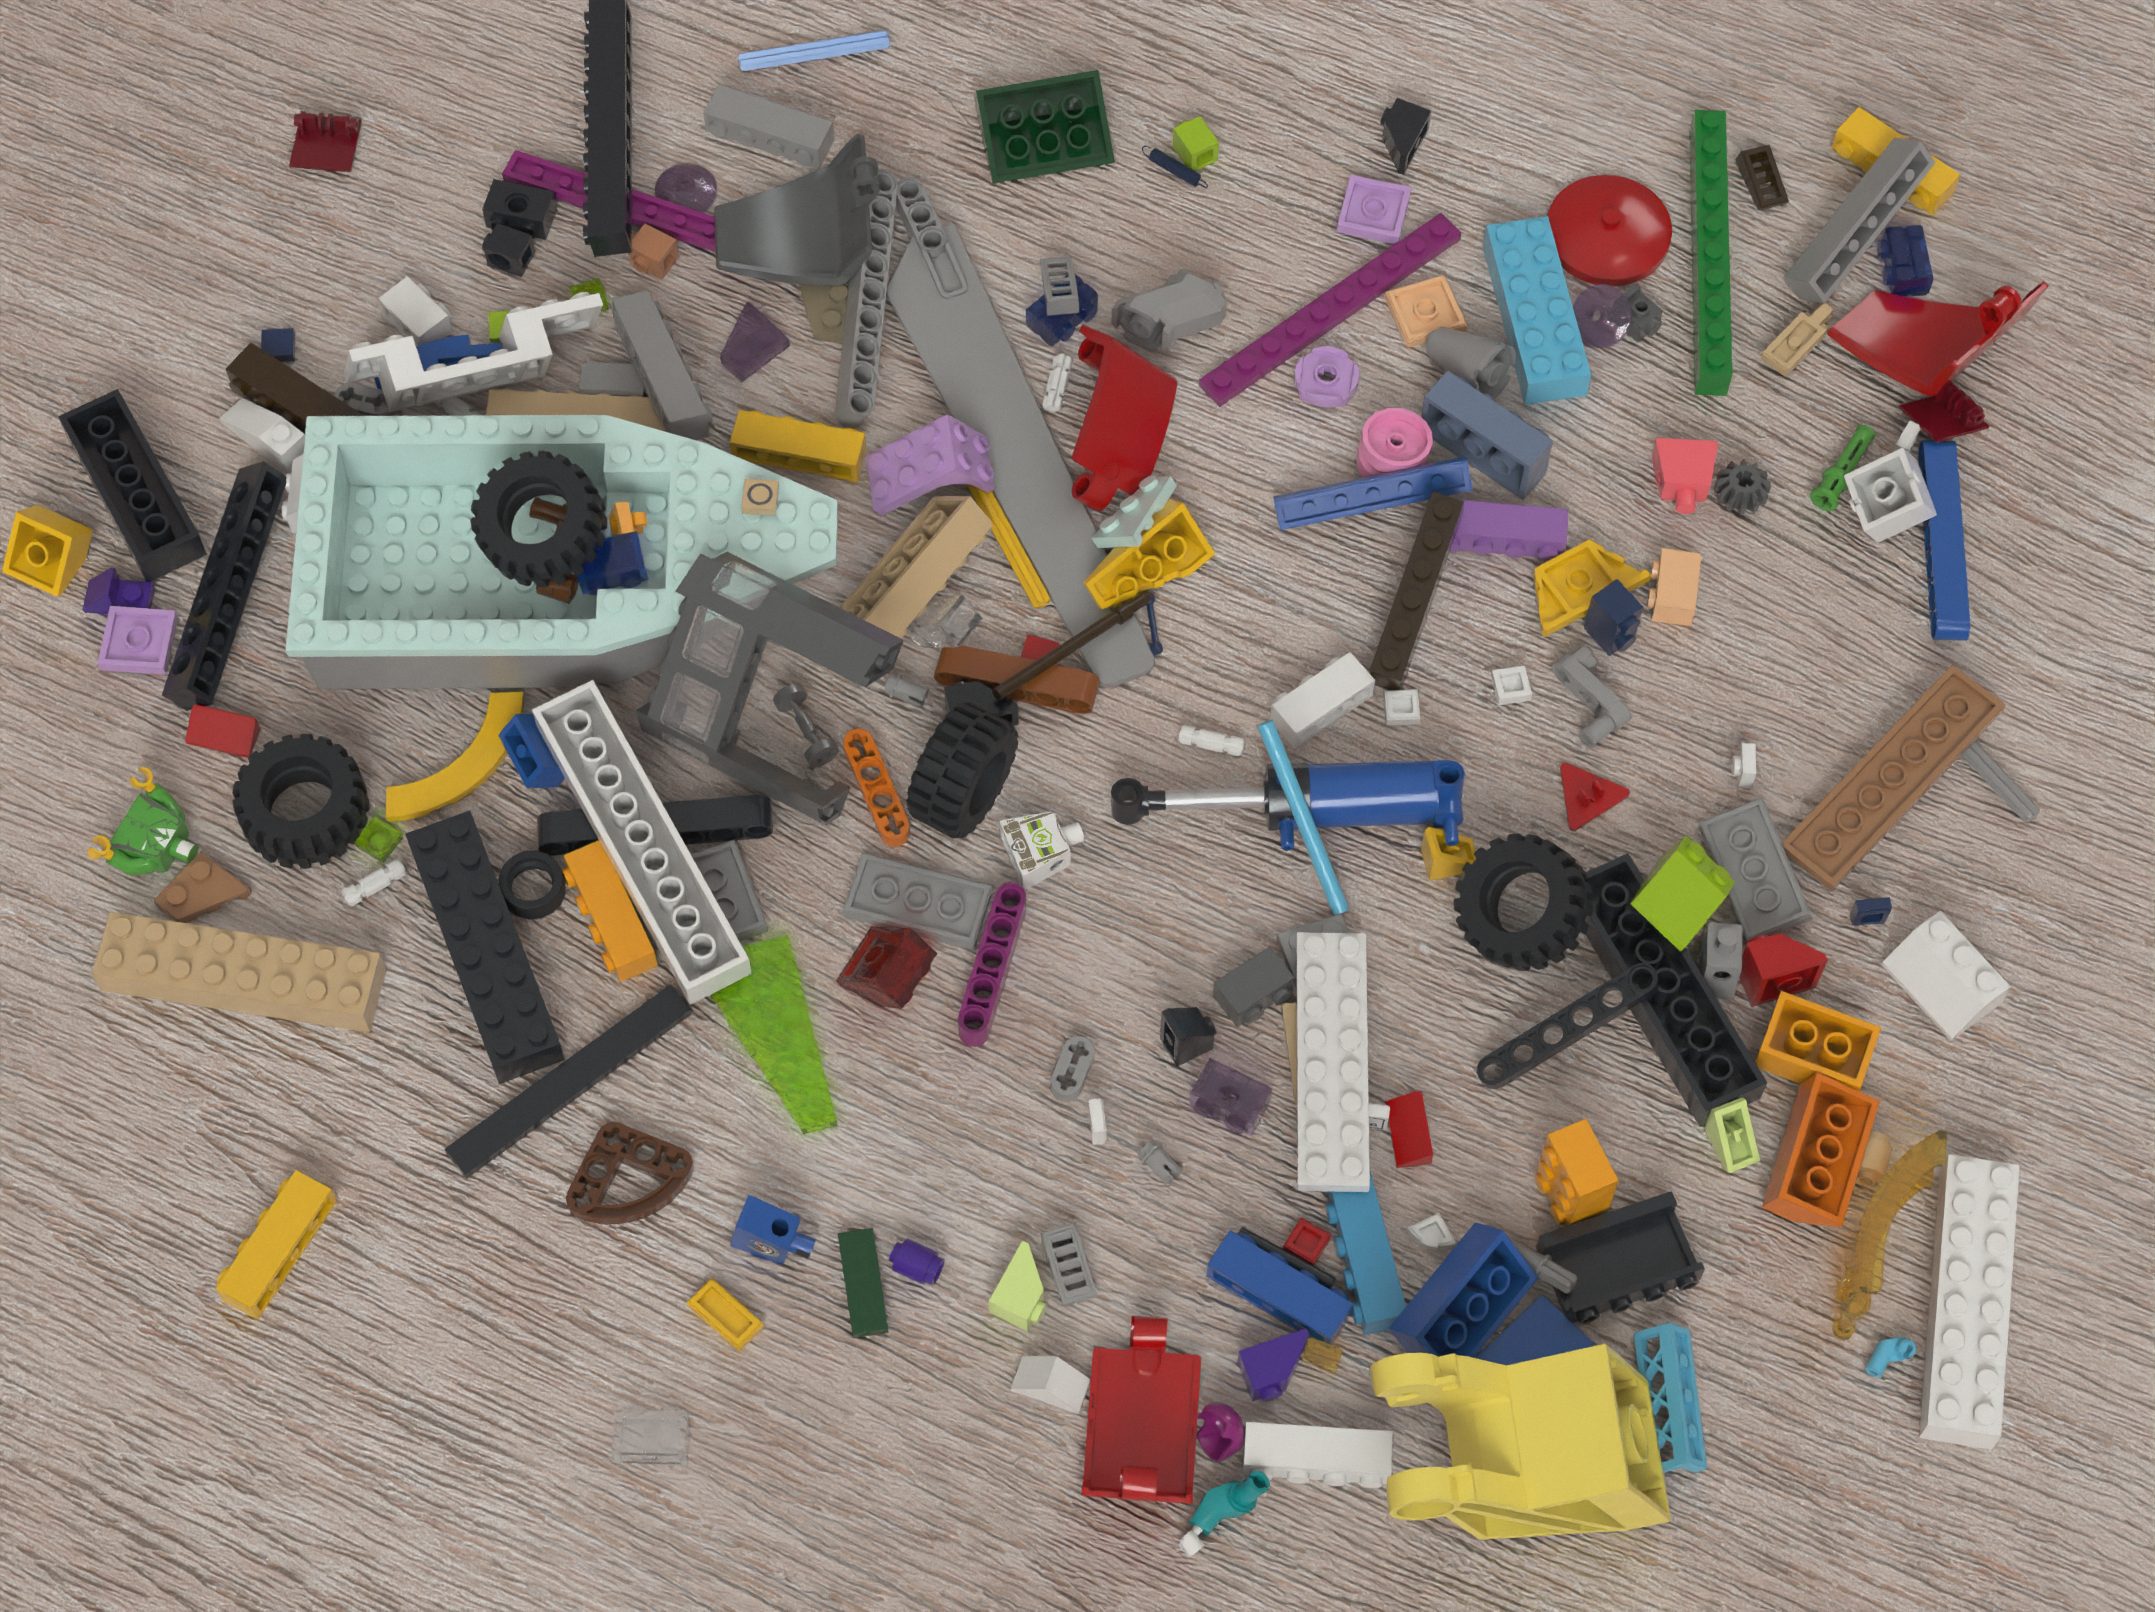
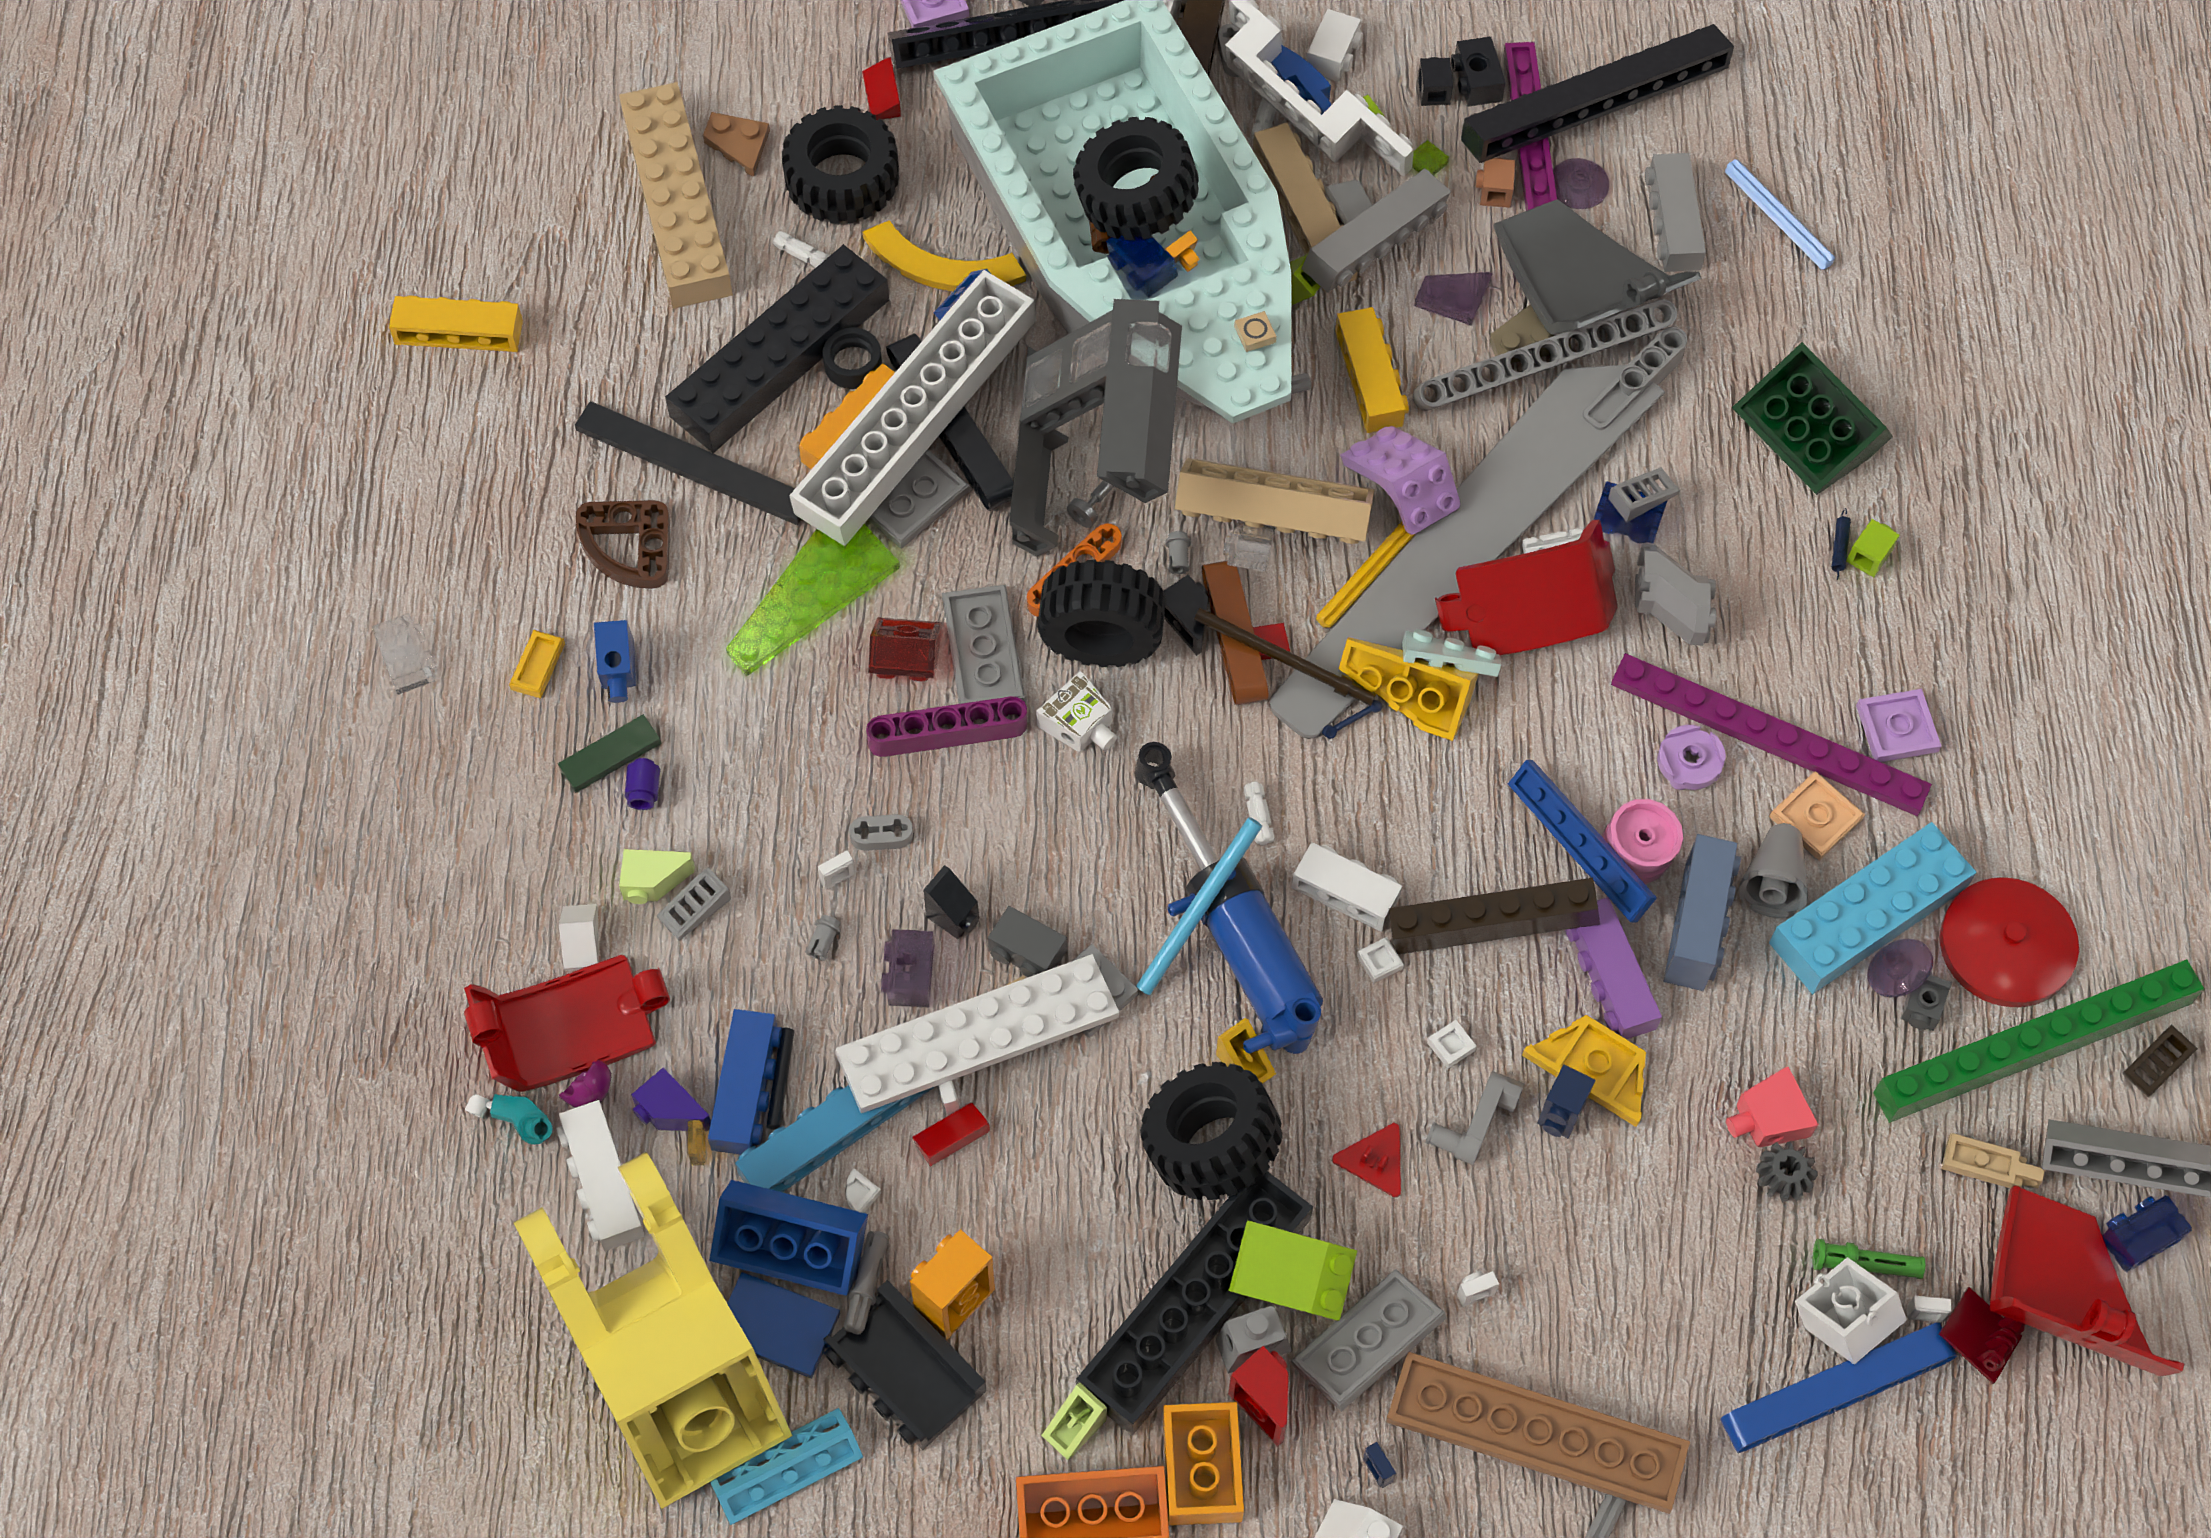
camera: 65 degrees right, 0 degrees up
(149, 834) = (764, 82): bright green torso -> none
(379, 839) = (842, 233): clear neon green tile -> none
(1307, 1241) = (803, 1089): red tile -> none
(1404, 131) = (2000, 717): black slope -> none
(1571, 1031) = (1113, 1220): black beam -> none
(1675, 587) = (1639, 1150): light nougat brick -> none

